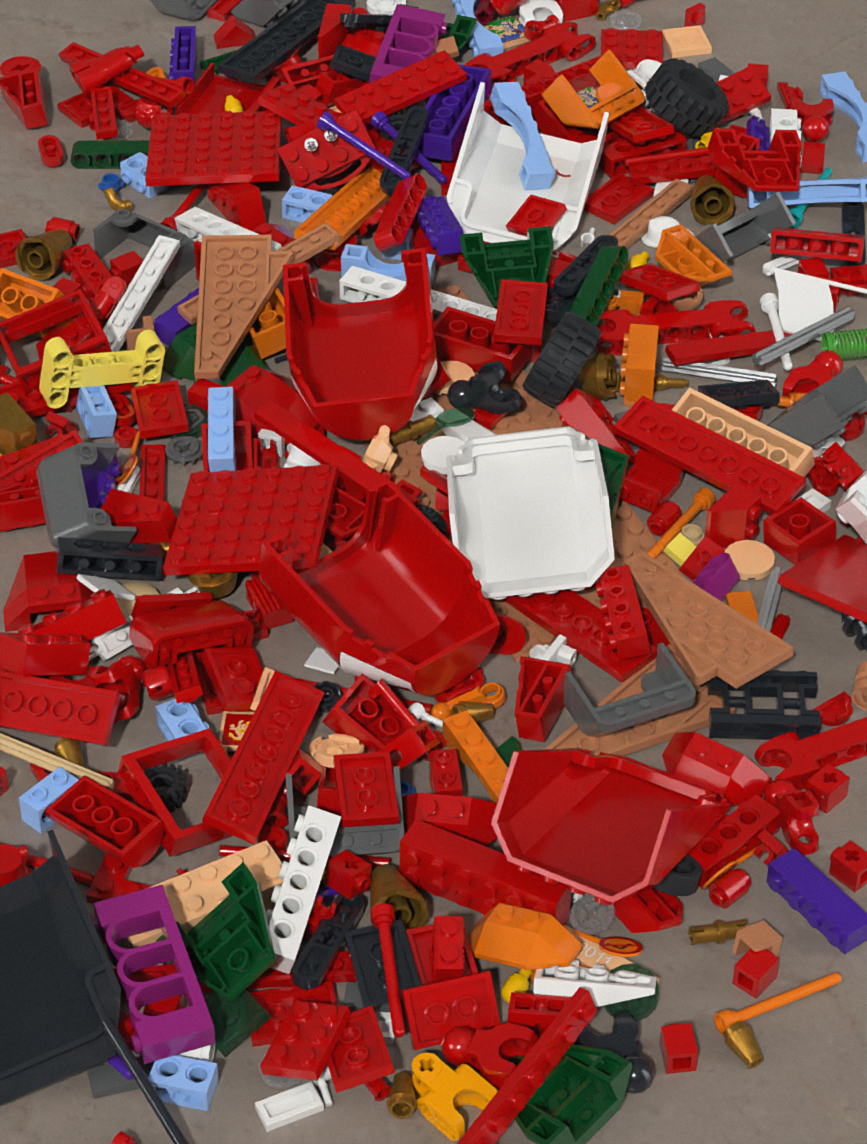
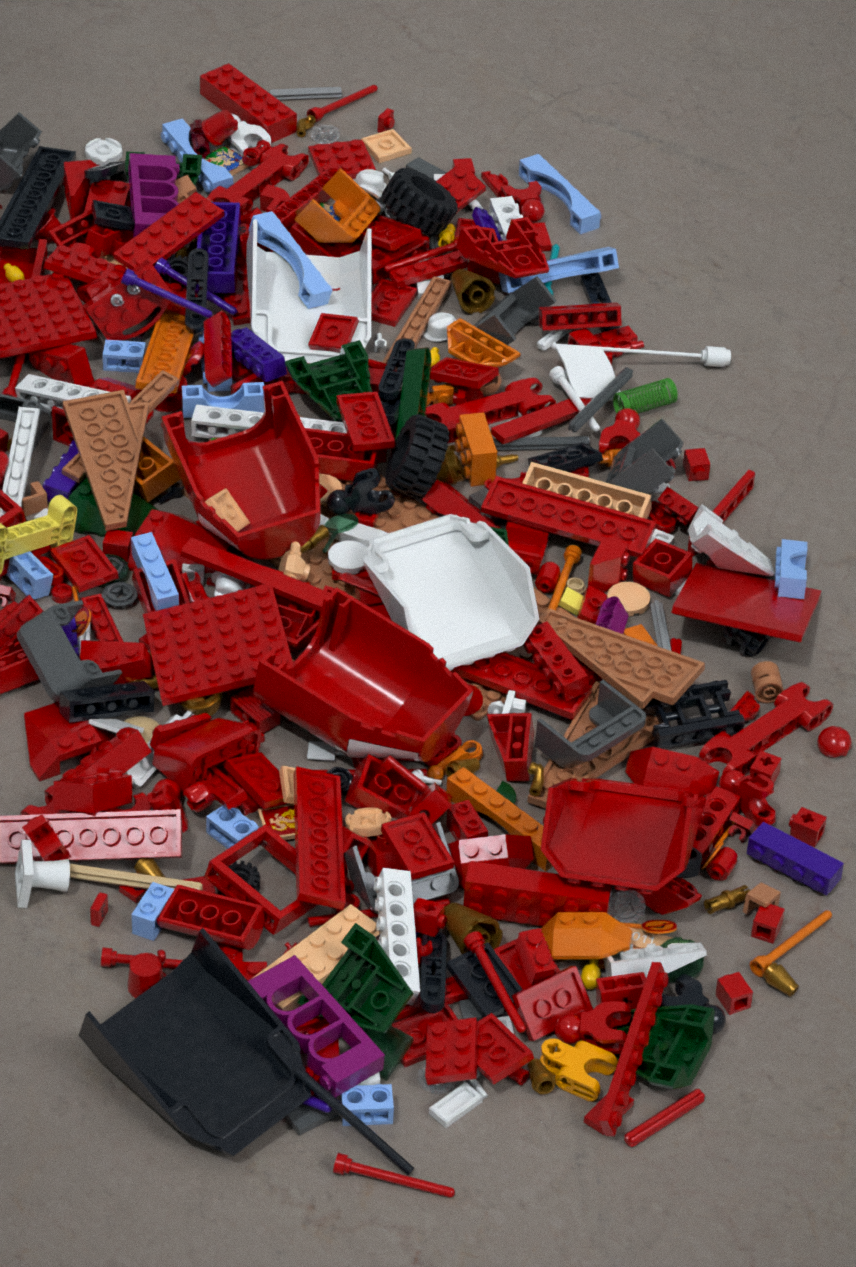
camera: 20 degrees left, 0 degrees up
(326, 379) = (228, 509): none -> light nougat tile
(551, 732) = (538, 780): none -> pearl gold arm

